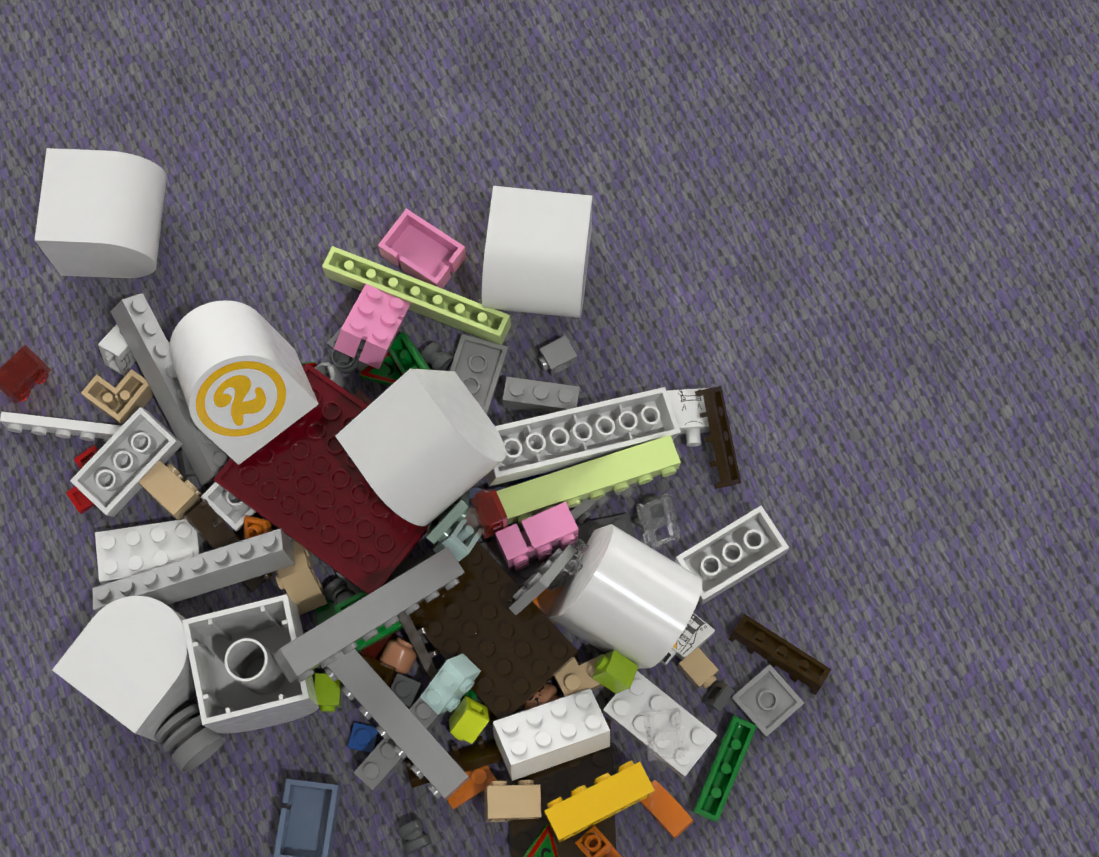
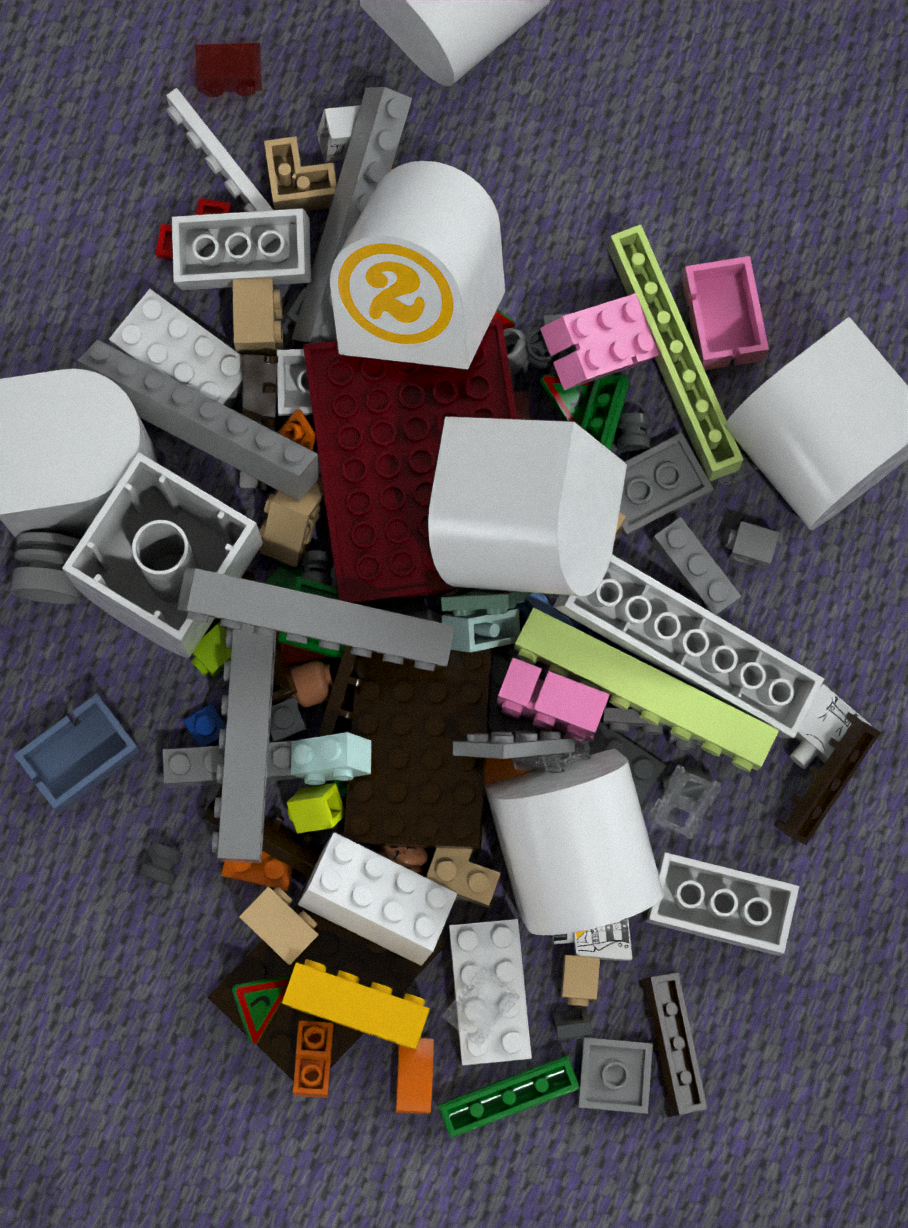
camera: 40 degrees right, 5 degrees up
(489, 512) = (524, 632): clear red brick -> none
(614, 671) = (494, 901): lime brick -> none

